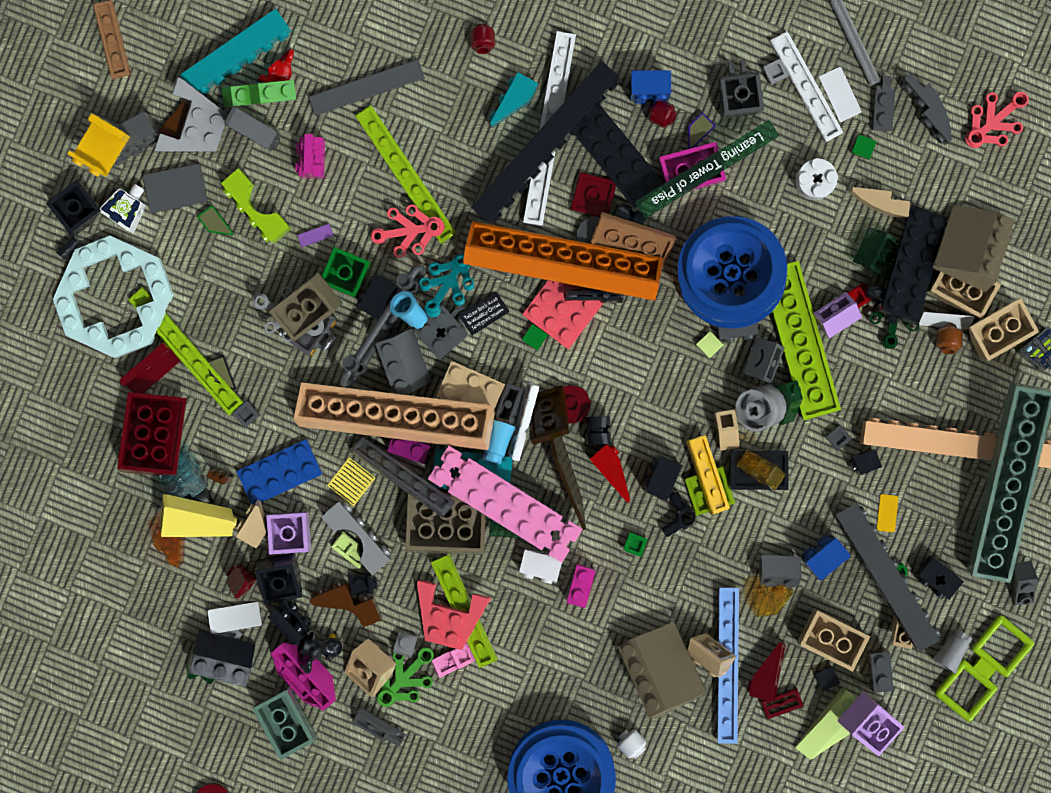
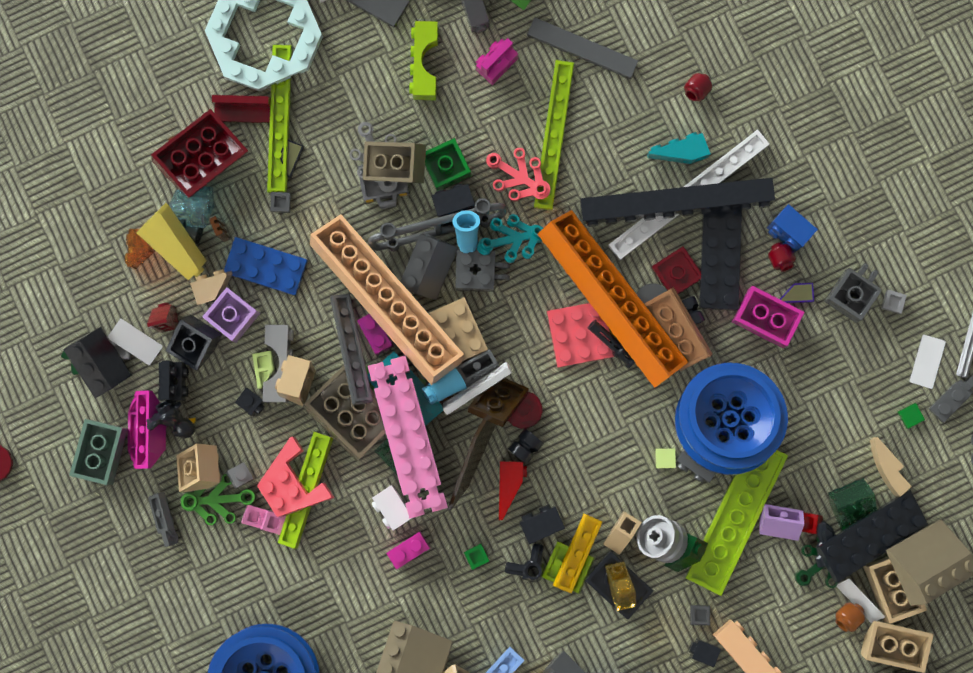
camera: 50 degrees right, 5 degrees down
(214, 222) = (385, 45): olive tile -> none
(315, 235) = (448, 120): medium lavender piece -> none
(340, 598) = (224, 397): reddish brown arch -> none
(351, 481) = (311, 320): light yellow sticker -> none
(382, 537) = (295, 380): none -> tan slope
(484, 313) = (519, 285): black sticker -> none
(535, 337) = (541, 336): green tile -> none
(707, 169) = (780, 325): clear green tile -> none
(763, 360) = (696, 506): dark grey brick -> none
(806, 87) = (907, 333): white tile -> none
(827, 179) = (854, 396): white brick -> none

